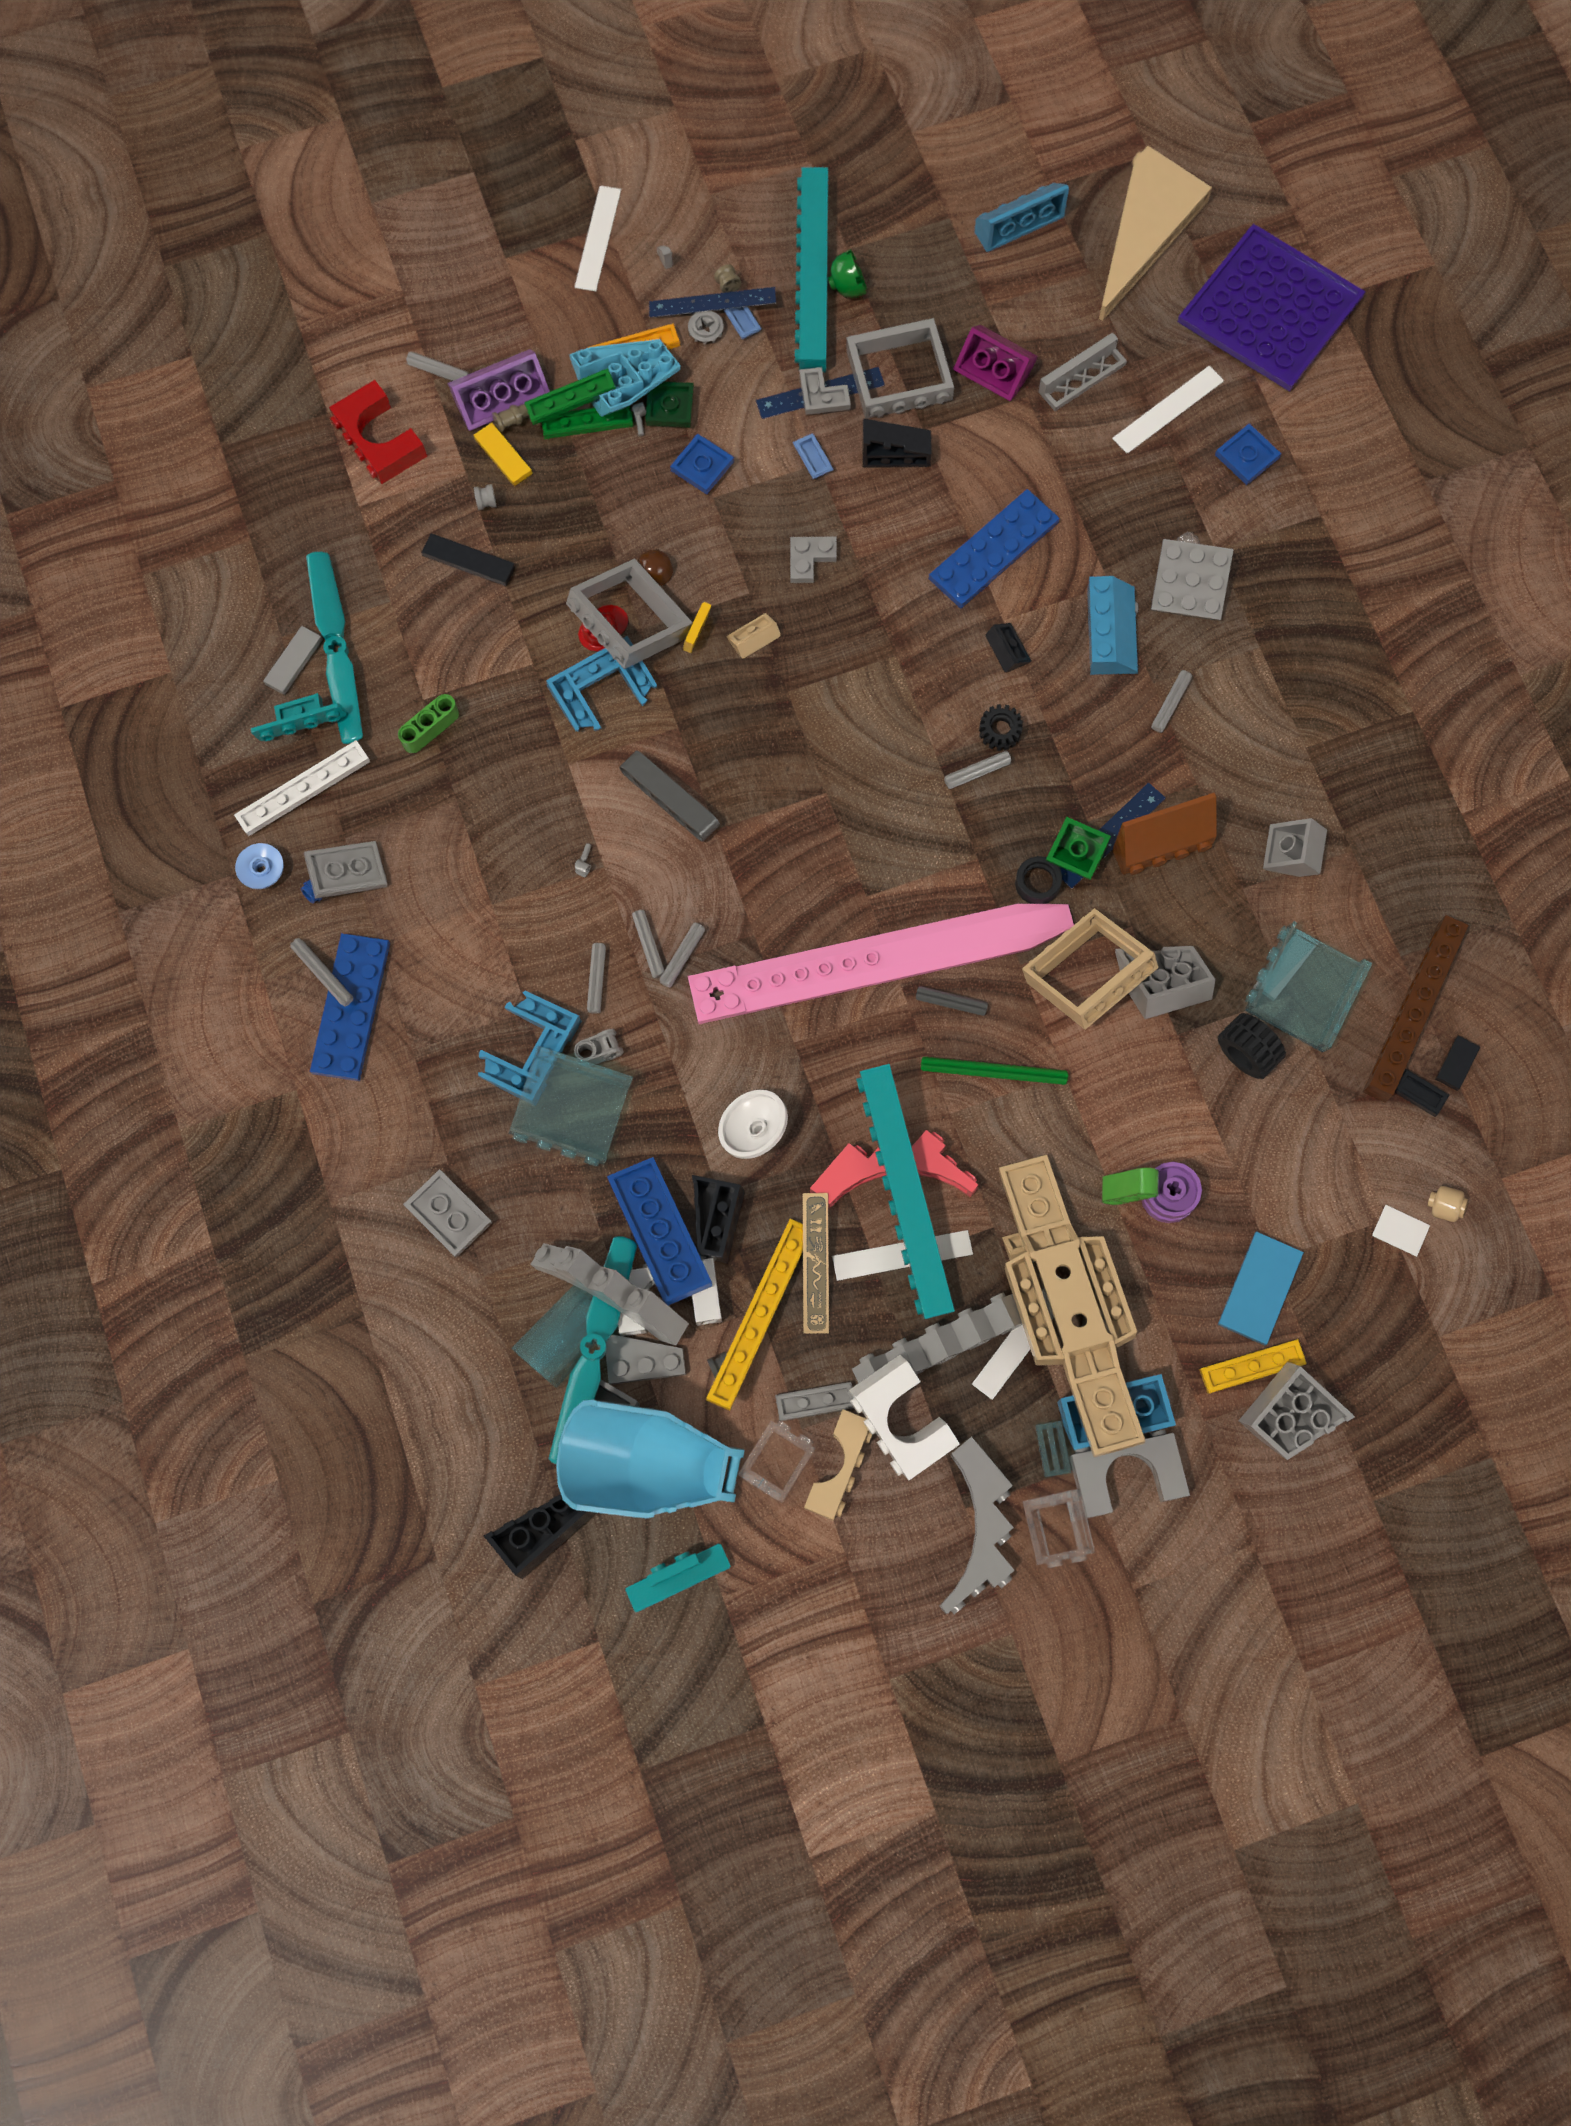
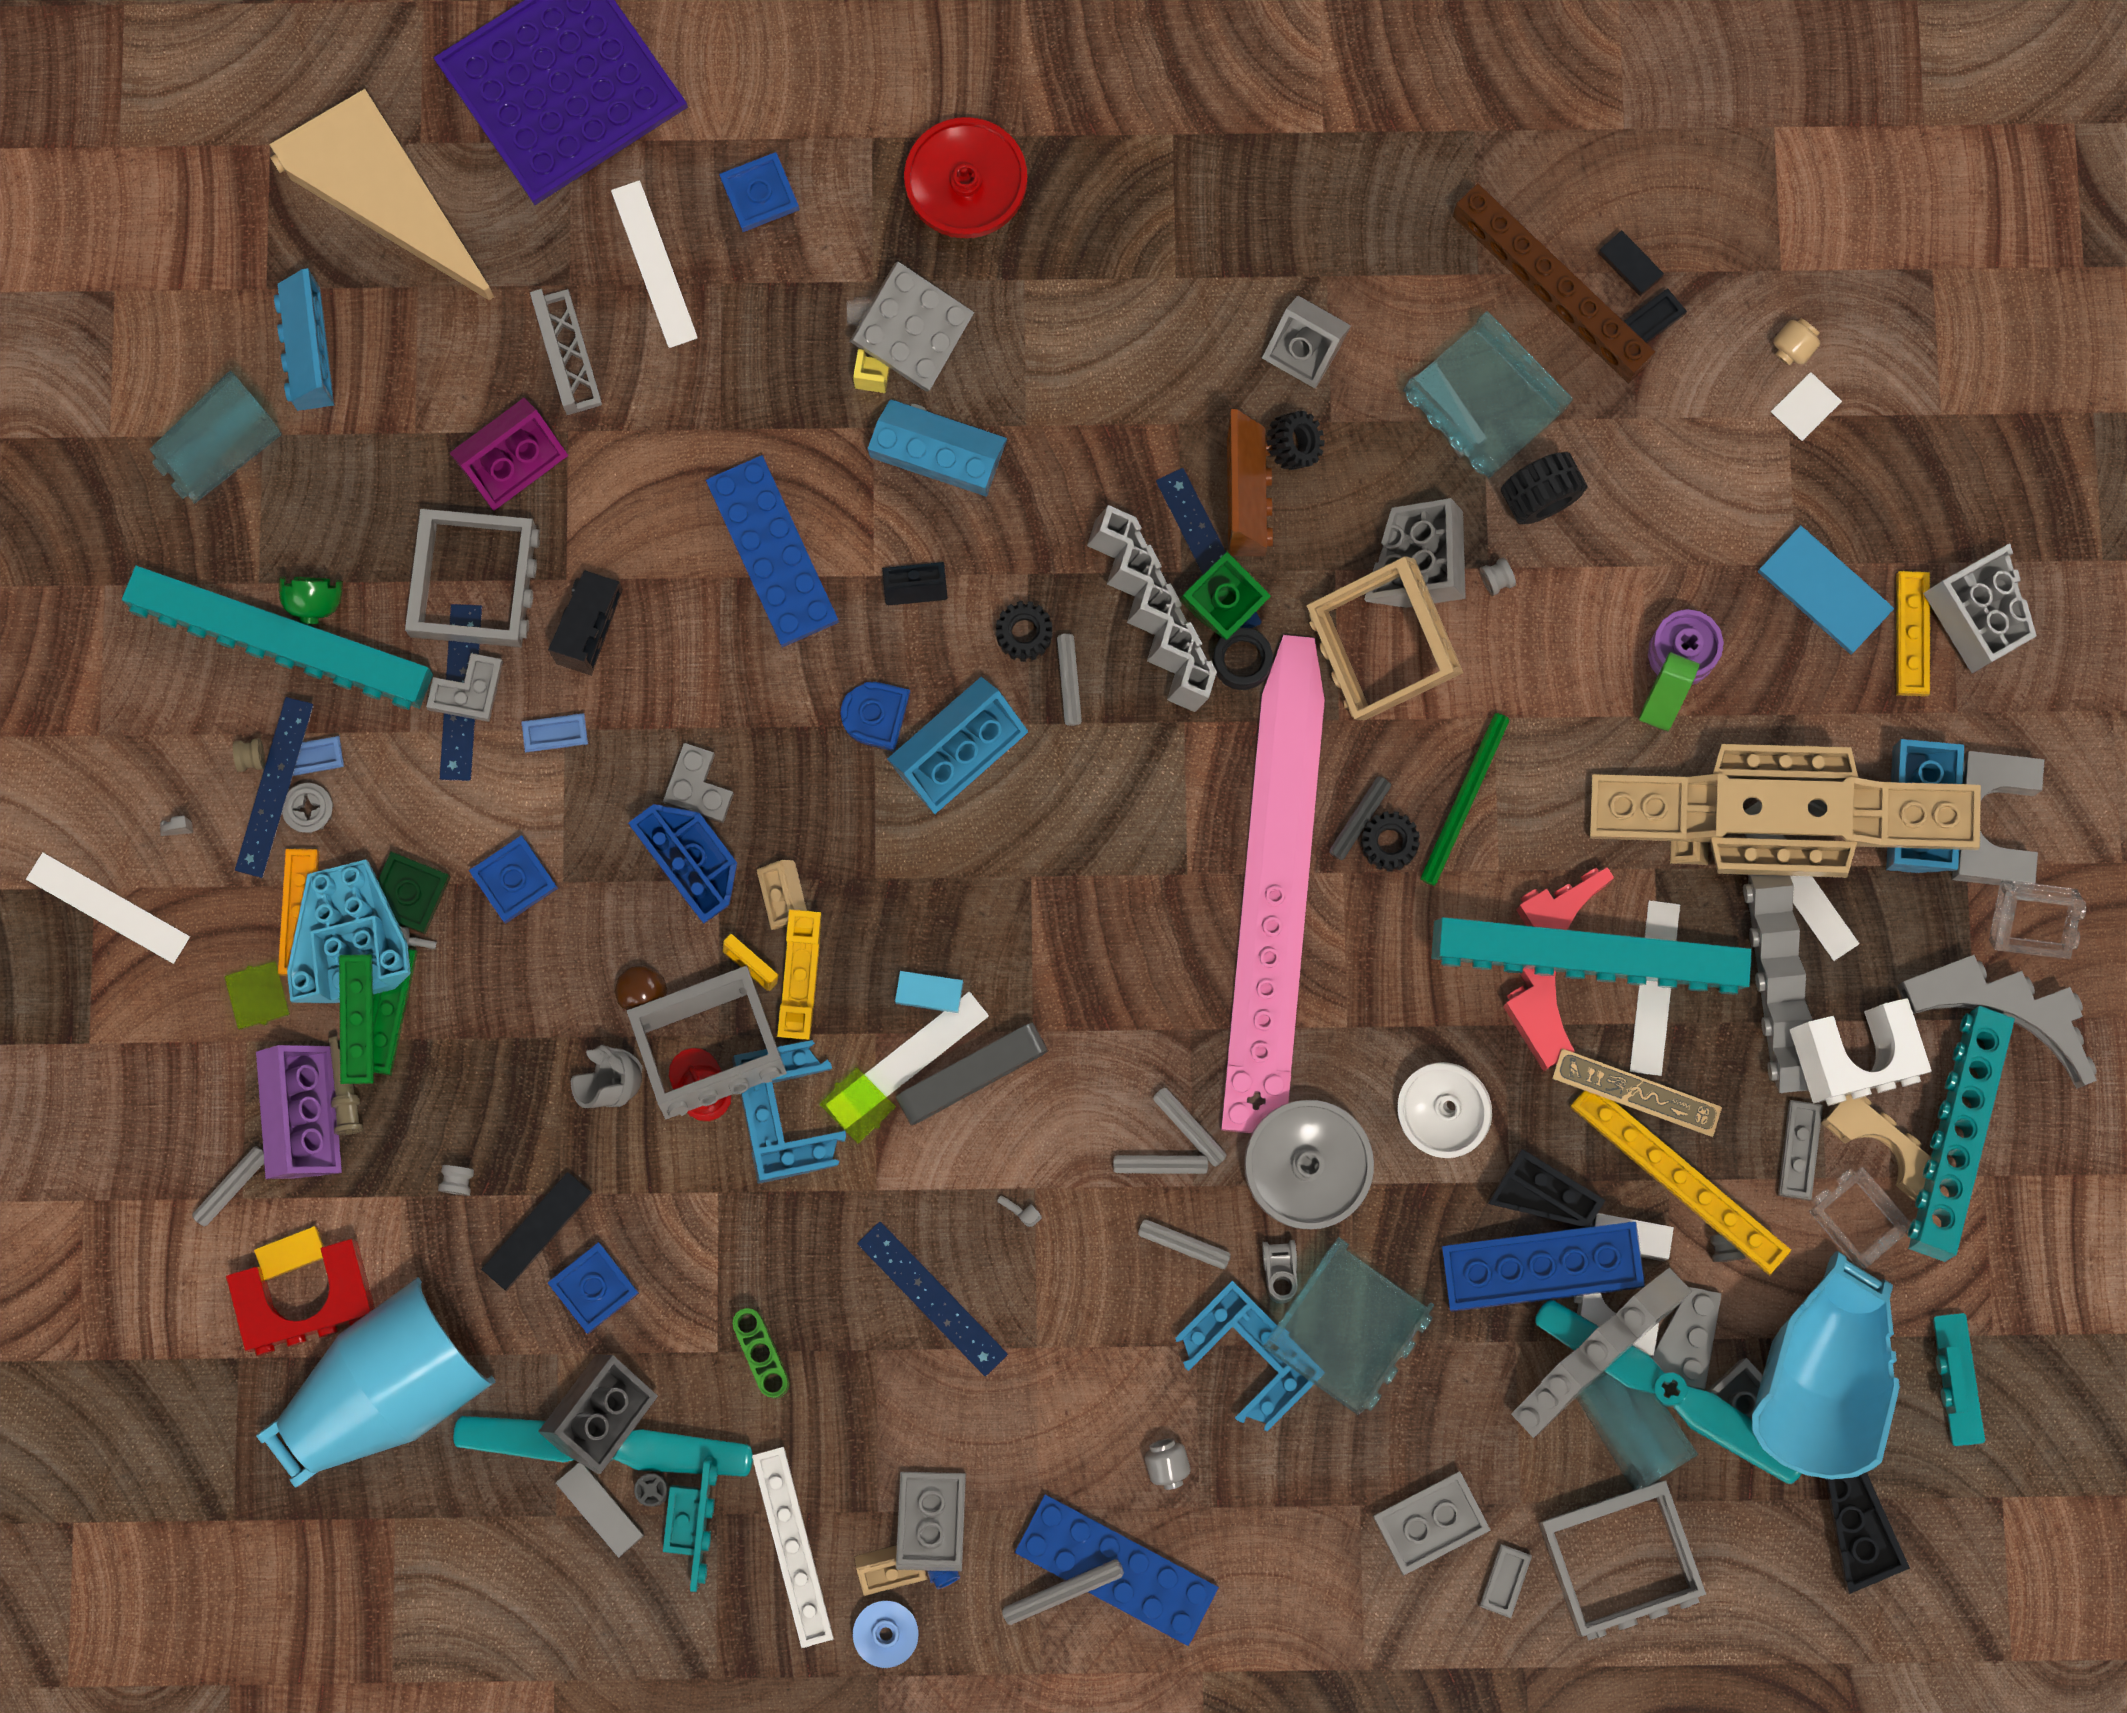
camera: 75 degrees left, 5 degrees up
(297, 846) = (879, 1573): none -> tan slope
(313, 680) = (647, 1487): none -> dark grey wheel
(323, 490) = (374, 1389): none -> medium azure windscreen
(353, 632) = (598, 1413): none -> flat silver slope
(404, 416) = (290, 1253): none -> yellow tile
(420, 1377) = (1654, 1608): none -> light grey window
(422, 1281) = (1505, 1581): none -> light grey tile
(434, 1014) = (1167, 1463): none -> light grey head
(440, 605) = (593, 1288): none -> blue plate
(503, 454) = (396, 1138): yellow tile -> none
(503, 825) = (932, 1299): none -> dark blue sticker
(569, 339) = (257, 995): none -> clear neon green piece
(579, 566) = (613, 1082): none -> light grey helmet
(622, 731) = (857, 1105): none -> clear neon green piece
(666, 754) = (926, 1045): none -> white sticker
(680, 1041) = (1309, 1164): none -> light grey dish
(700, 664) = (800, 974): none -> yellow slope
(718, 750) = (929, 992): none -> medium azure tile
(754, 560) = (689, 857): none -> blue wedge
(900, 710) = (958, 745): none -> dark azure slope
(903, 652) = (875, 714): none -> blue tile
(934, 185) = (214, 439): none -> clear light blue slope
(945, 1012) = (1394, 822): none -> black tyre
(959, 1522) = (1995, 1032): none -> teal brick
(1051, 805) = (1154, 607): none -> light grey brick
(1057, 1471) = (1966, 898): clear light blue tile -> none
(1146, 565) = (870, 373): none -> light yellow panel
(1171, 701) = (1061, 412): light grey axle -> none
(1171, 1039) = (1497, 576): none -> light grey wheel
(1225, 870) = (1283, 443): none -> black tyre
(1316, 578) = (965, 177): none -> red dish

